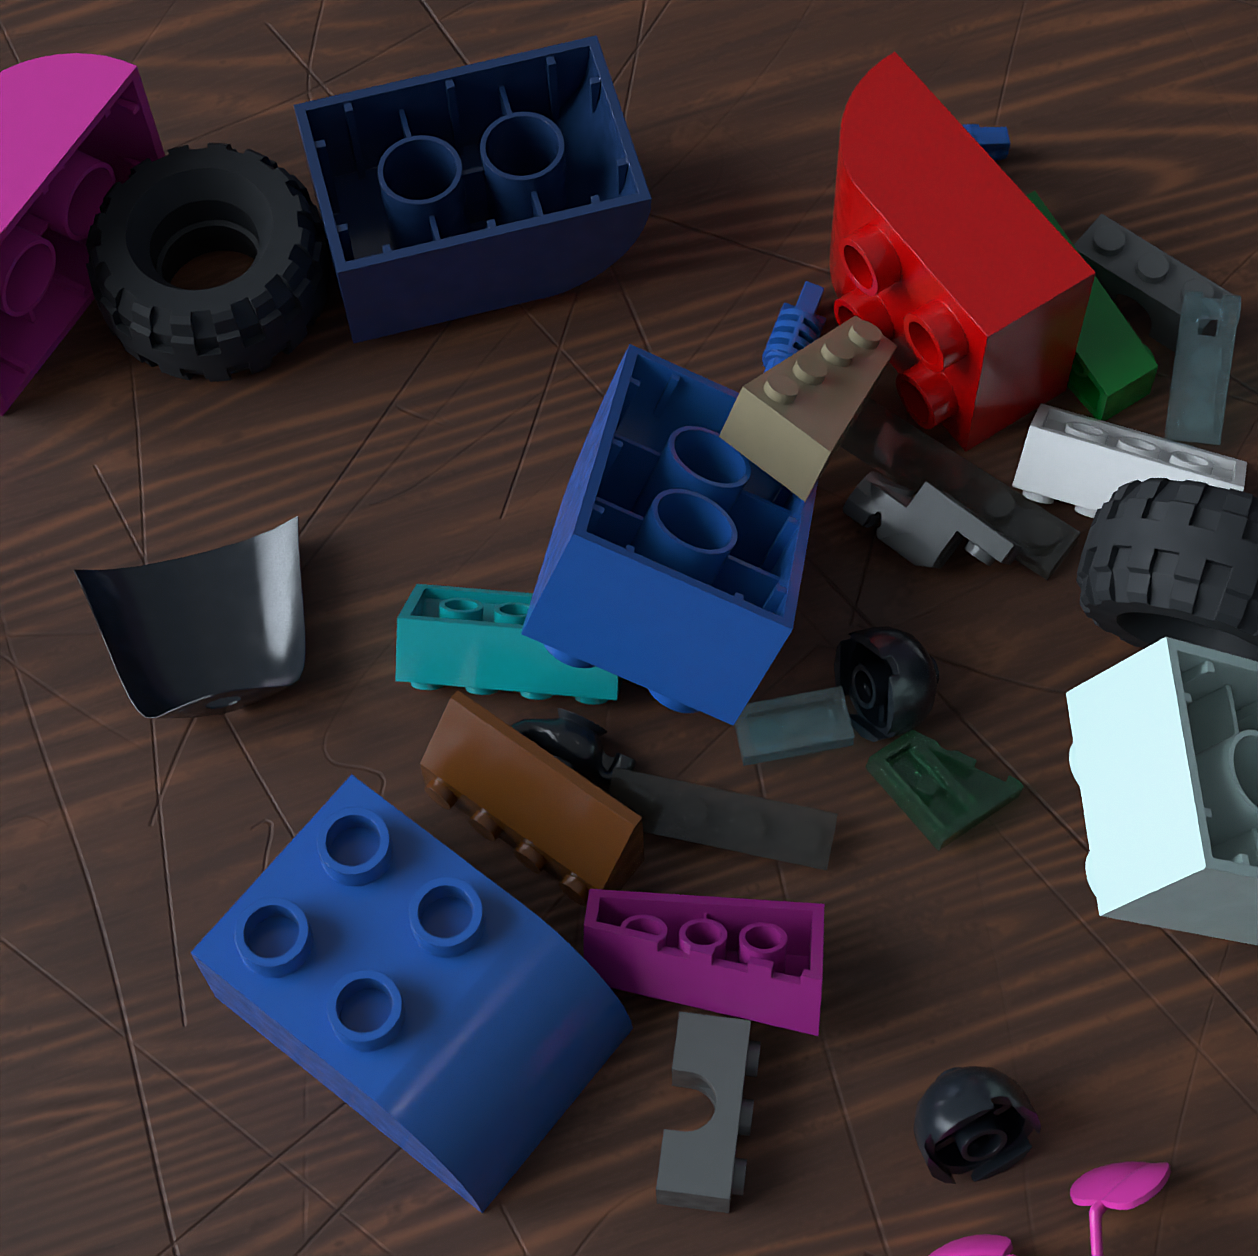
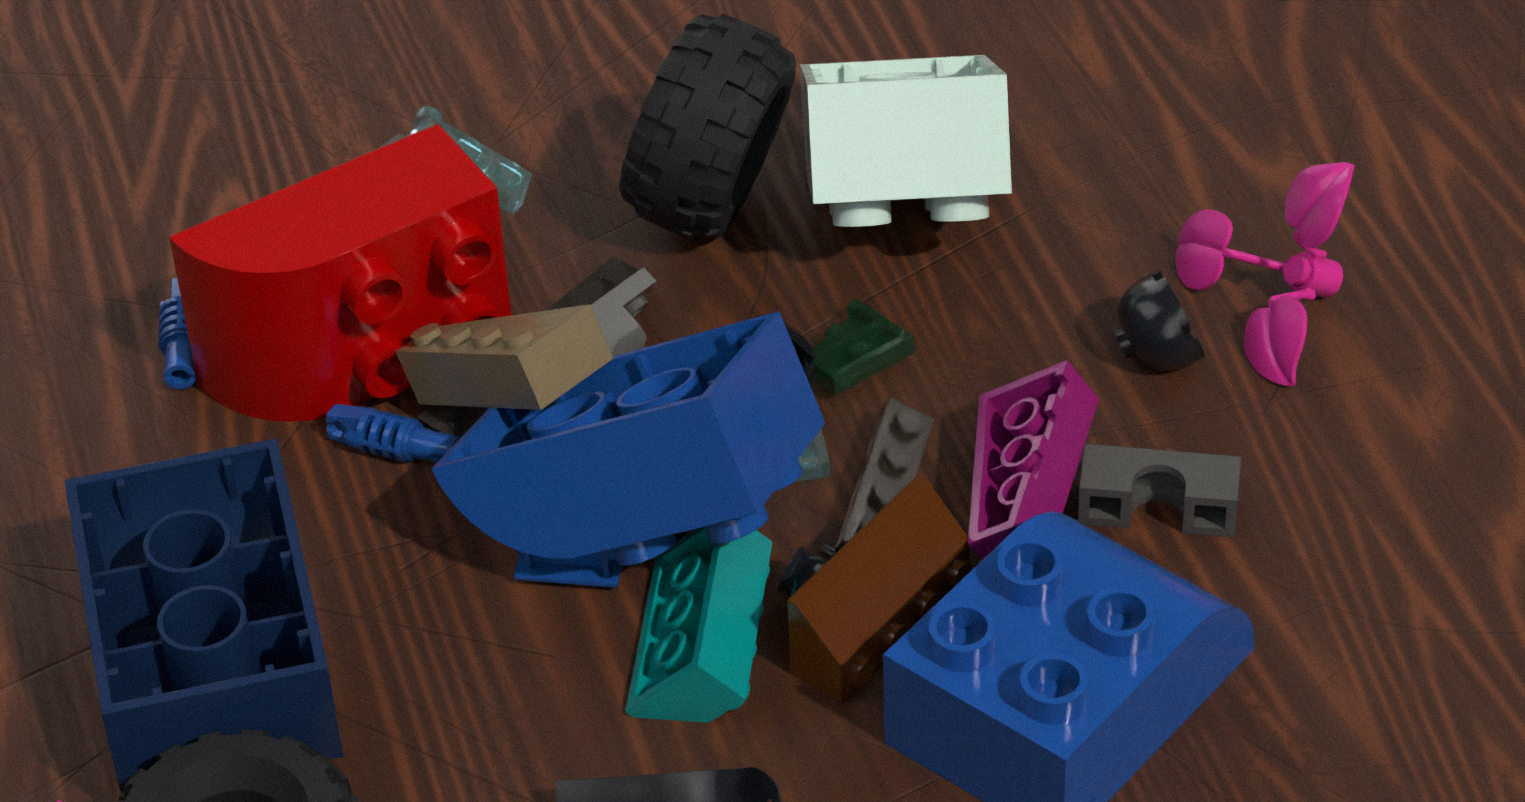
camera: 90 degrees left, 20 degrees down
(1089, 459) = (564, 218): white slope -> none

